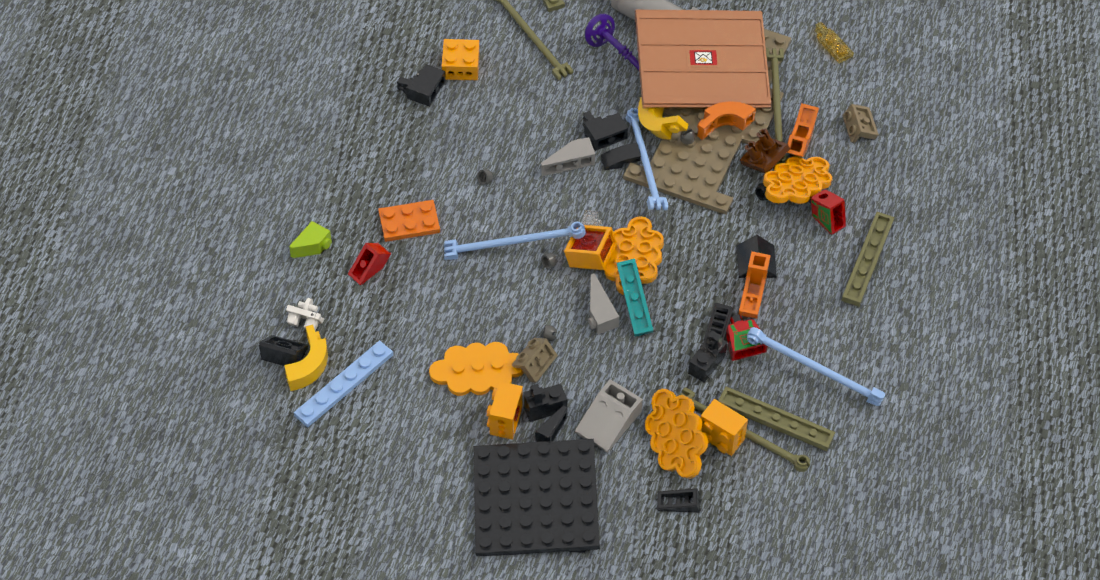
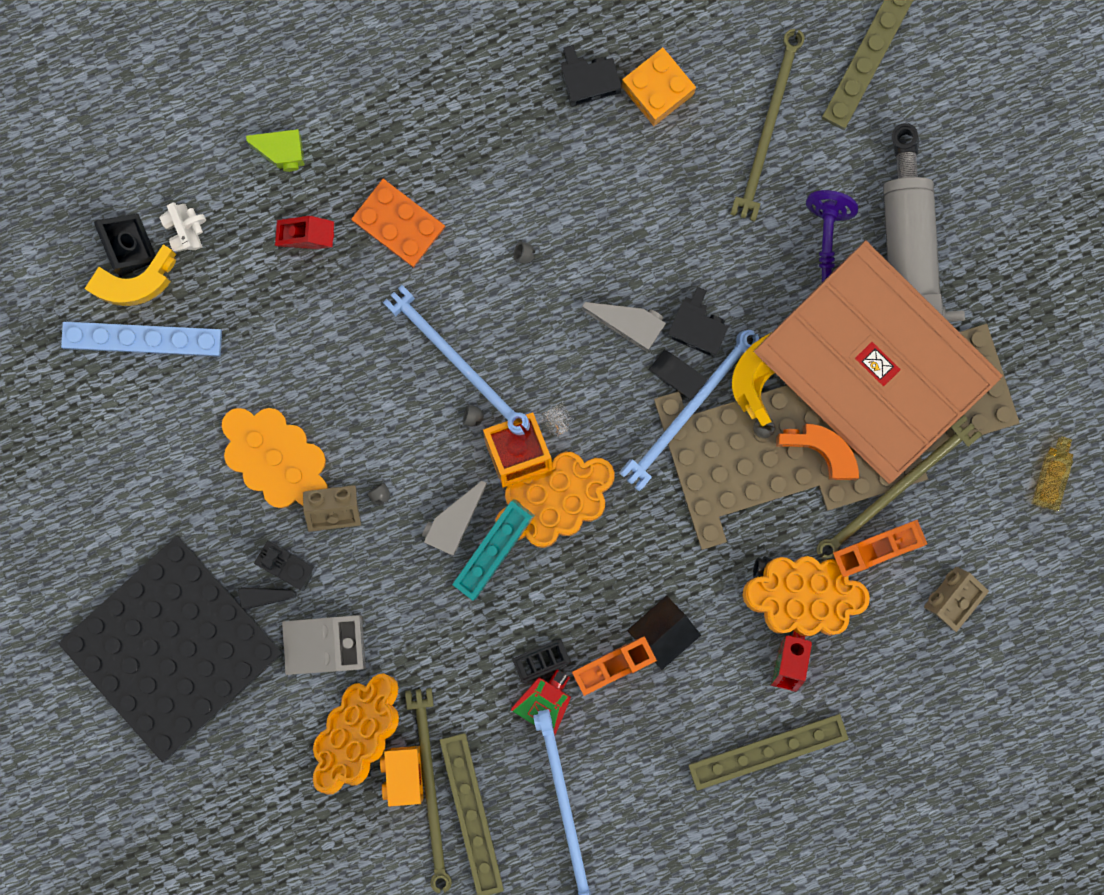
camera: 45 degrees right, 30 degrees up
(505, 410) = (235, 537): light orange piece -> none
(678, 494) = (302, 812): black slope -> none
(708, 357) = (483, 687): black hinge -> none
(764, 153) = (812, 532): reddish brown plate -> none

